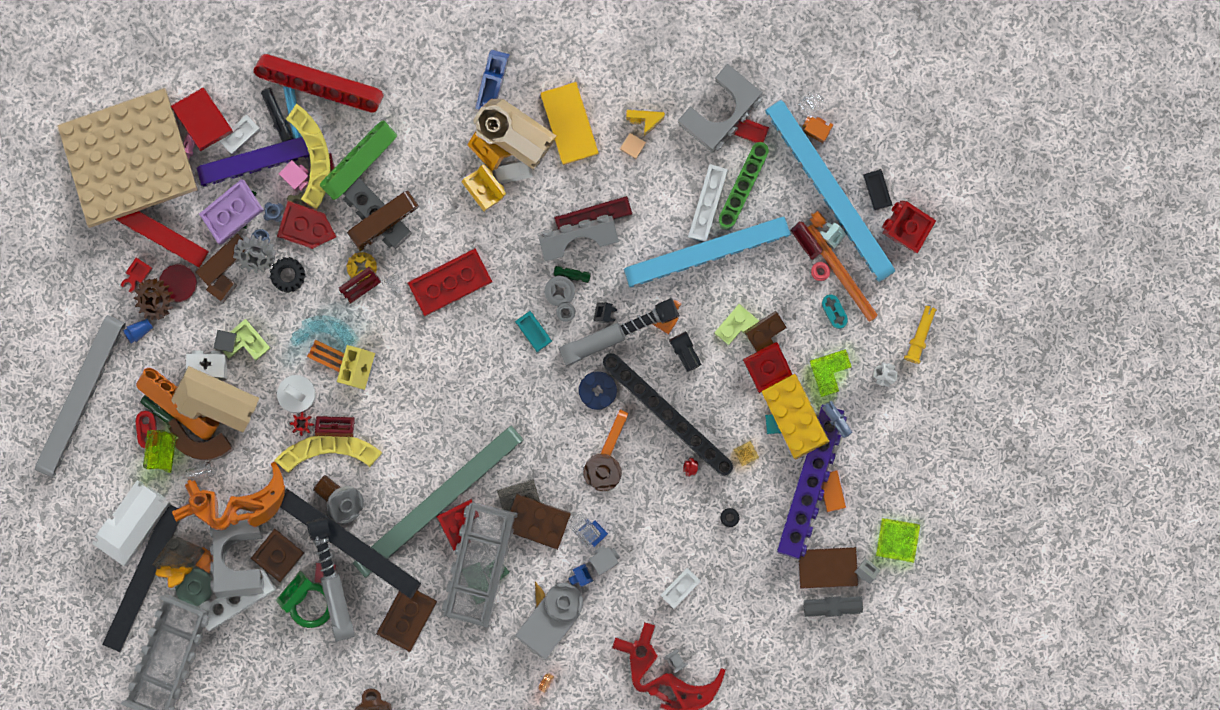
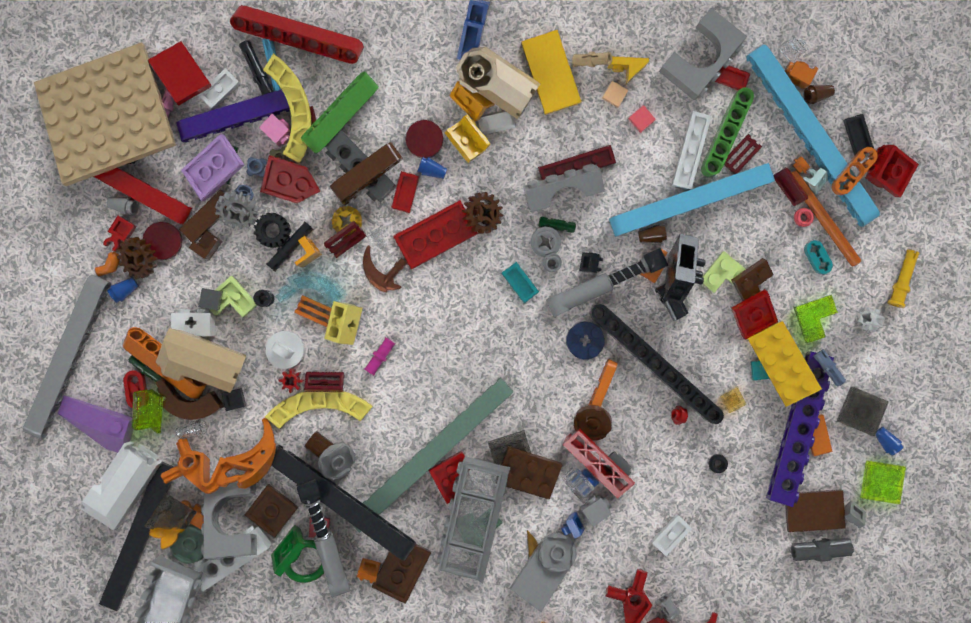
camera: 10 degrees left, 5 degrees up
(110, 465) = (101, 424): none -> medium lavender wedge
(126, 306) = (110, 265): none -> orange arm
(140, 247) = (124, 205): none -> light grey cone
(243, 442) = (234, 399): none -> black plate
(281, 346) = (261, 303): none -> black bush
(300, 295) = (287, 249): none -> black pin
(327, 297) = (311, 250): none -> light orange panel
(373, 616) = (368, 570): none -> orange tile
(390, 402) = (379, 356): none -> dark pink pin
(392, 326) = (378, 279): none -> copper piece
(420, 239) = (405, 192): none -> red tile
(441, 187) = (424, 139): none -> dark red tile
(447, 216) = (431, 168): none -> blue cone
(489, 258) = (484, 213): none -> reddish brown gear
(603, 515) = (597, 466): none -> fence
(609, 111) = (592, 59): none -> tan pin
(627, 517) = (621, 462): none -> dark grey brick
(659, 170) = (641, 118): none -> coral tile
(667, 286) = (653, 234): none -> reddish brown cone
(691, 321) = (682, 271): none -> black piece
(770, 196) = (752, 142): none -> dark red tile
(835, 148) = (817, 93): none -> reddish brown cone
(861, 240) = (862, 167): none -> orange beam
(876, 467) = (862, 411): none -> clear smoke plate
(903, 498) = (889, 442): none -> blue cone

